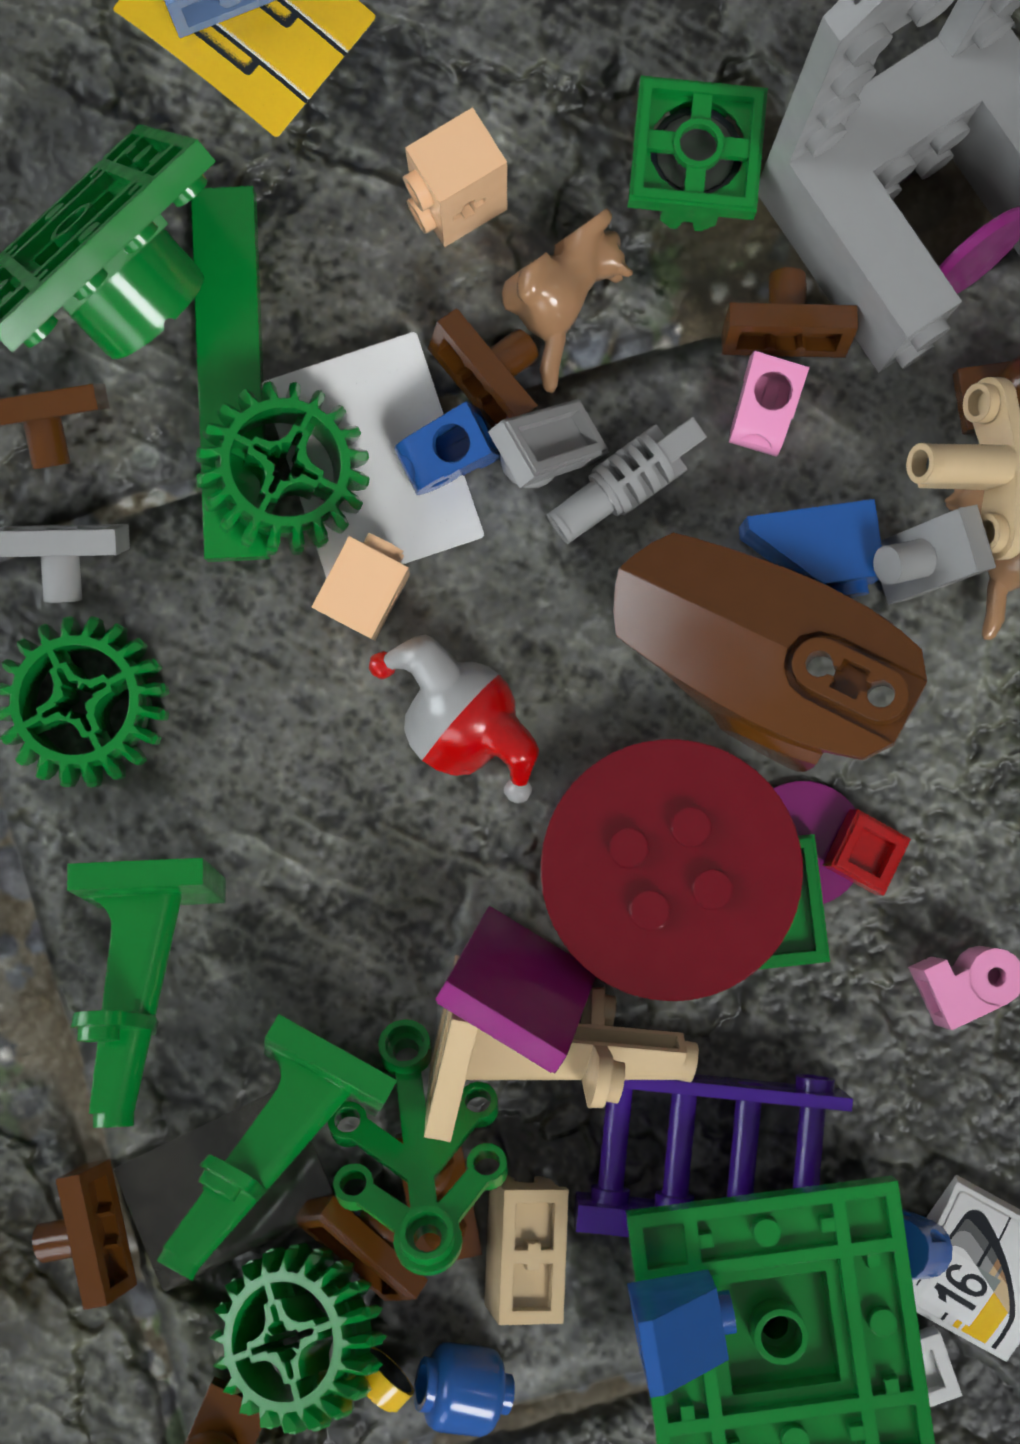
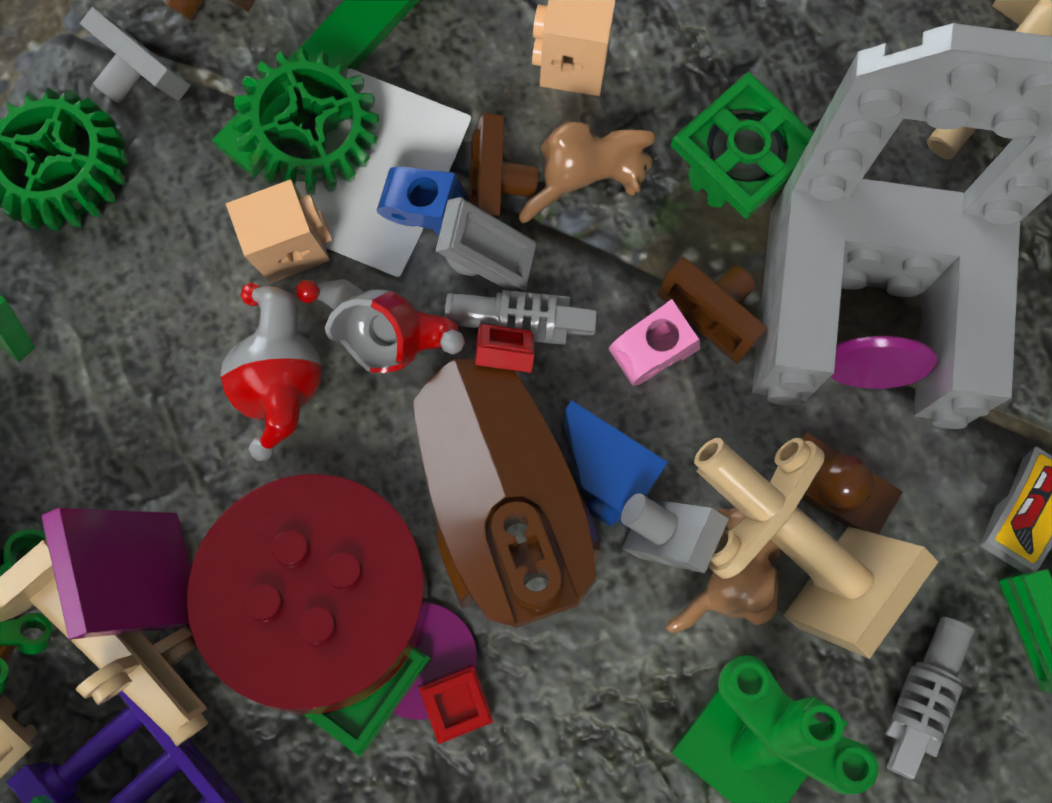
camera: 40 degrees right, 10 degrees down
(522, 594) = (380, 325): none -> piece
(649, 520) = (505, 348): none -> red tile

